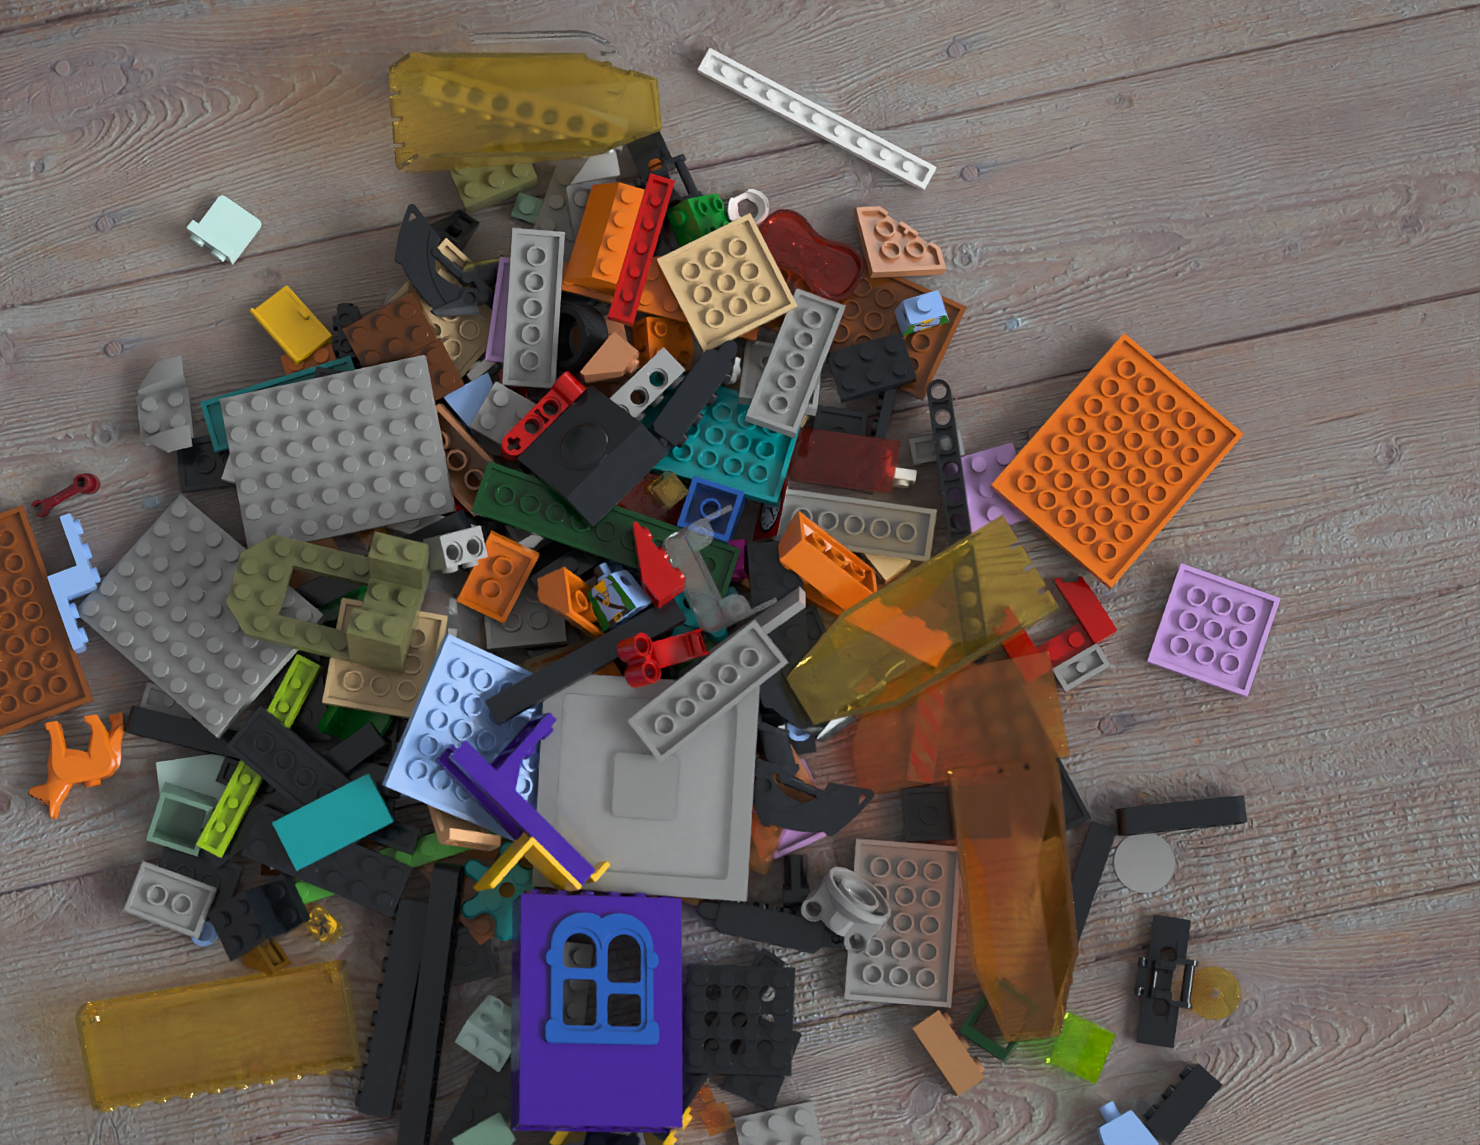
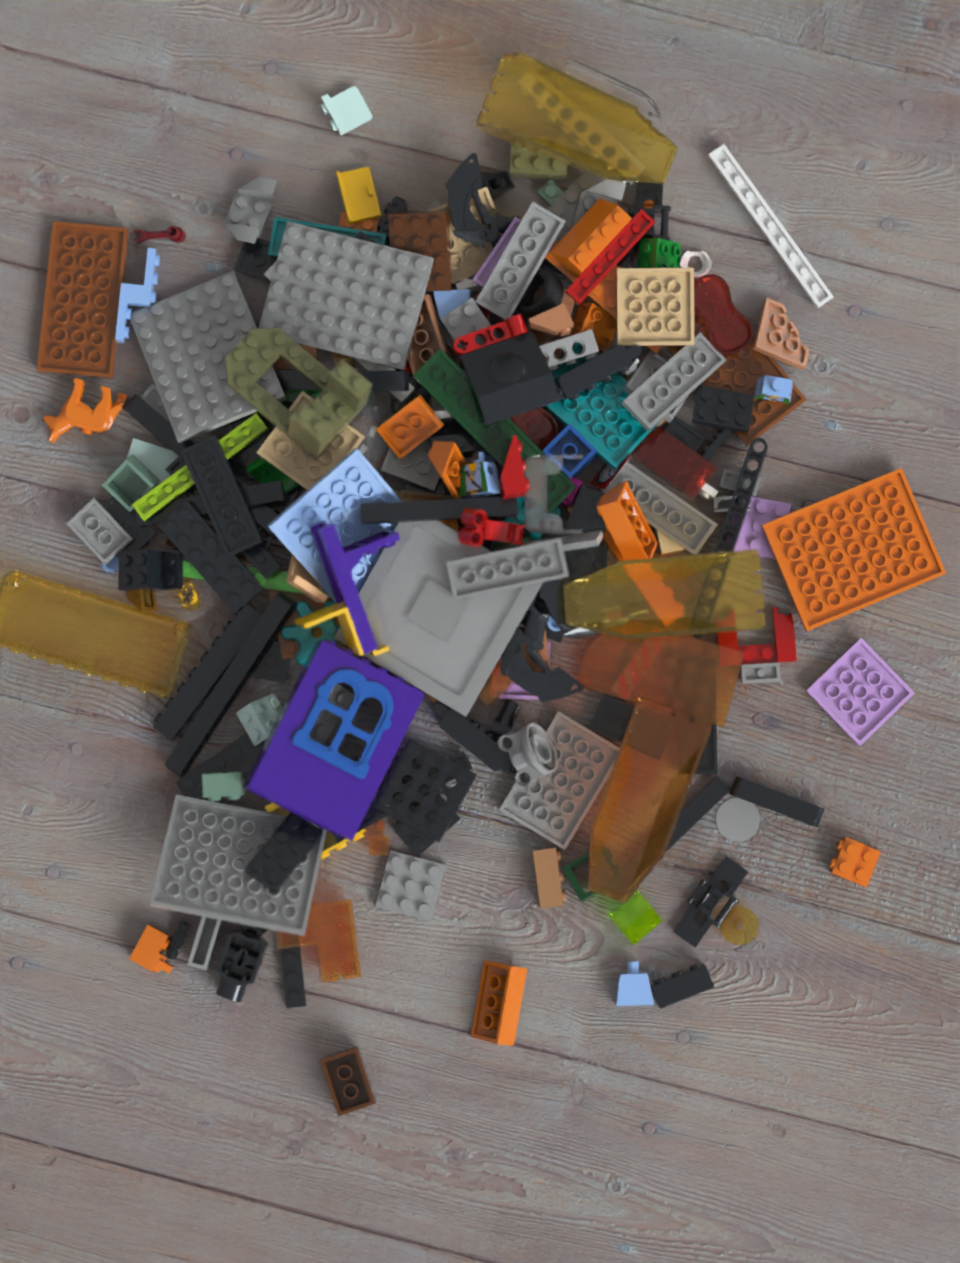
camera: 30 degrees right, 5 degrees up
(333, 822) = (225, 533): teal tile -> none
(456, 548) = (395, 396): light grey brick -> none
(668, 489) = (548, 424): clear yellow brick -> none
(930, 481) = (722, 504): none -> sticker
(1313, 842) = (854, 861): none -> orange plate

